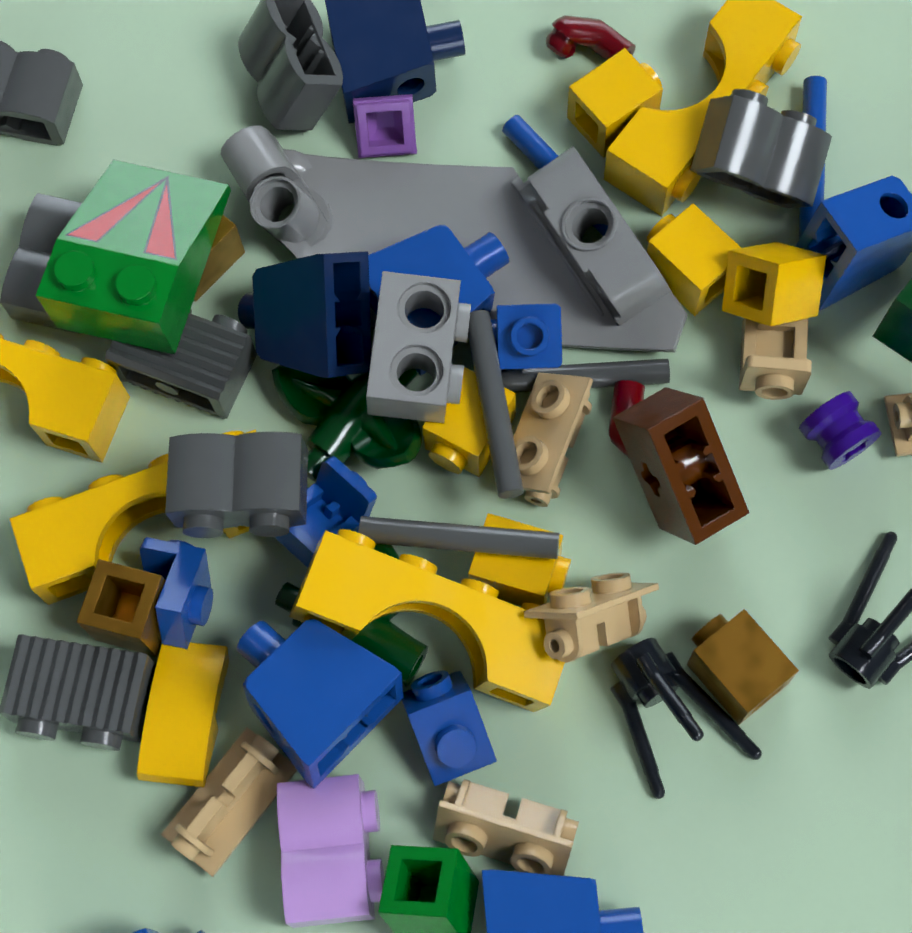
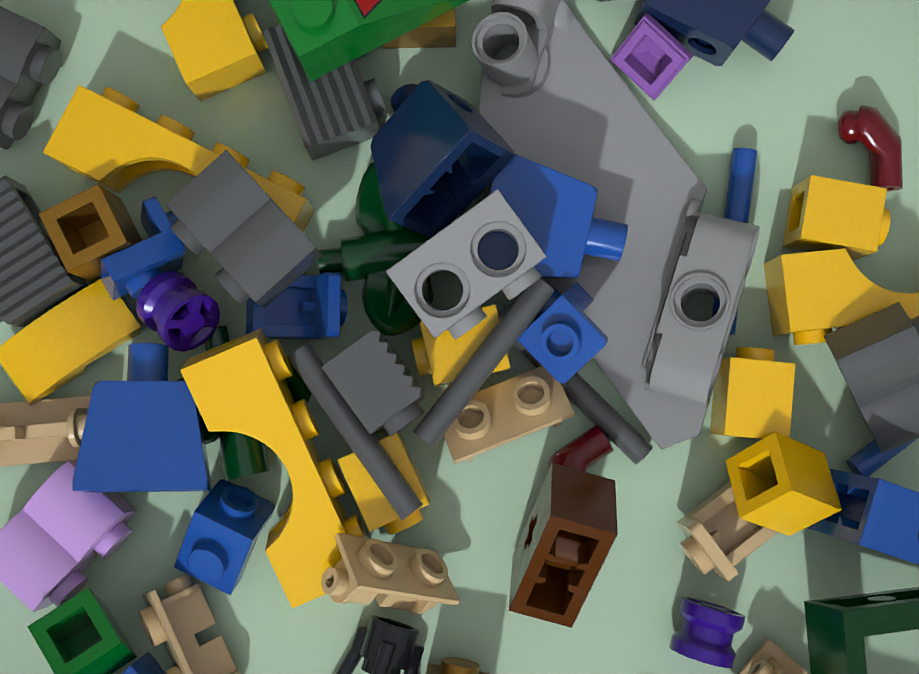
camera: 40 degrees right, 15 degrees up
(245, 596) = (178, 311): none -> dark purple wheel
(440, 485) = (376, 384): none -> dark grey brick

